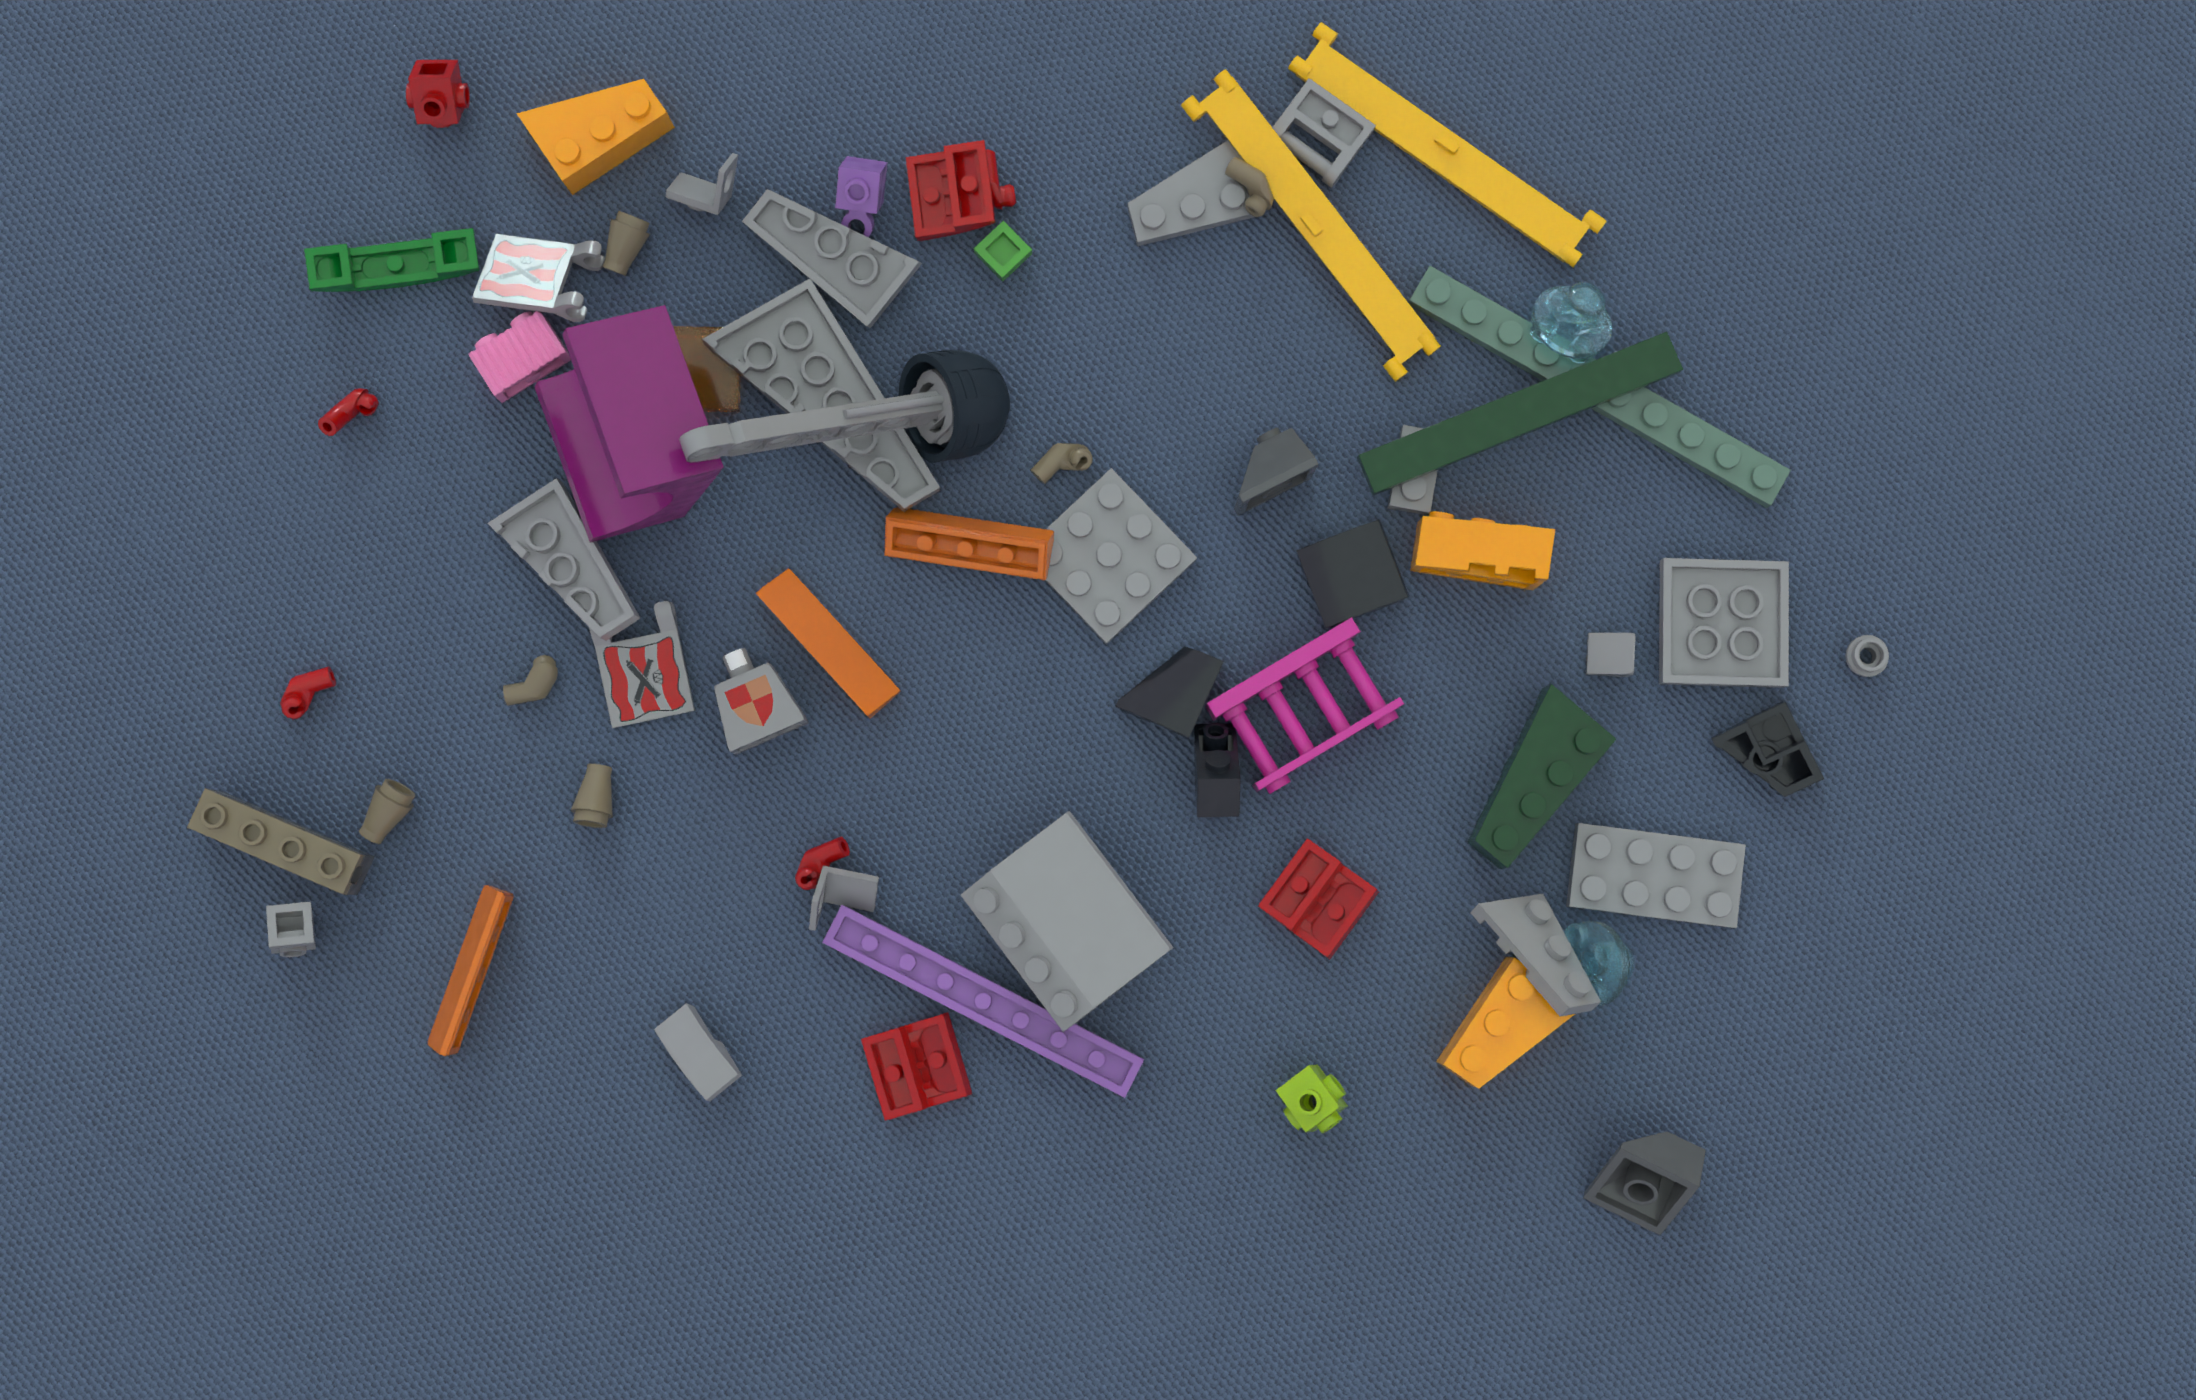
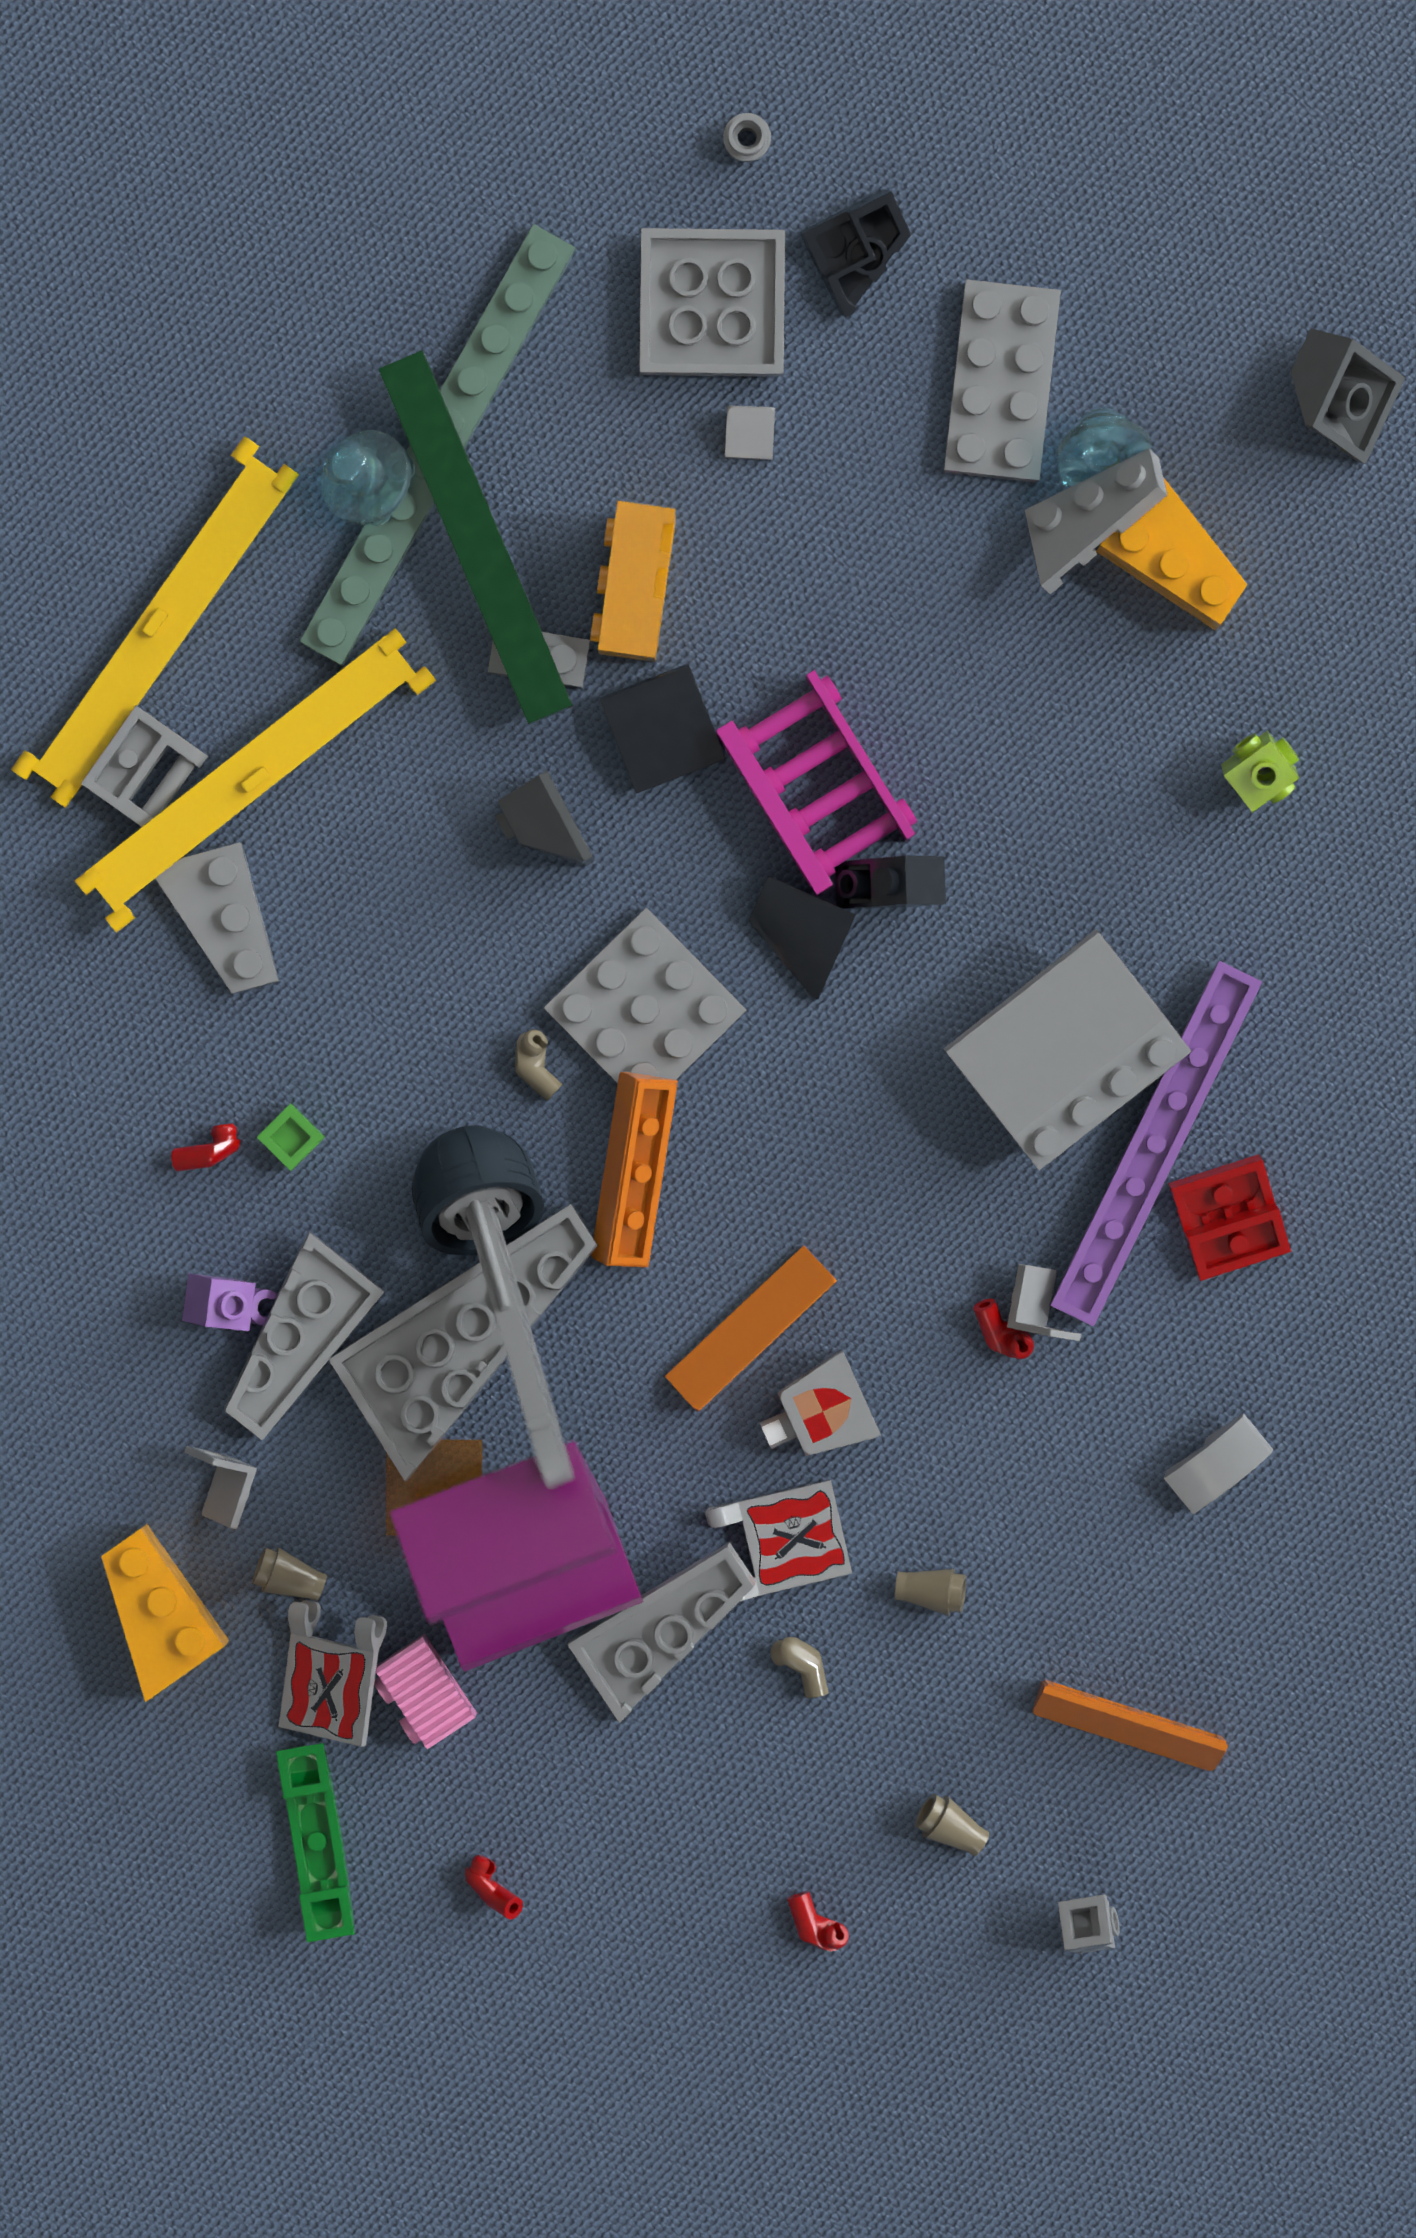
camera: 90 degrees left, 5 degrees up
(280, 842) = (989, 1941): dark tan piece -> none
(437, 92) = (117, 1797): red brick -> none
(950, 191) = (222, 1199): red slope -> none
(1256, 183) = (210, 843): dark tan arm -> none
(1318, 898) = (1034, 765): red slope -> none
(1544, 768) = (884, 509): dark green wedge -> none

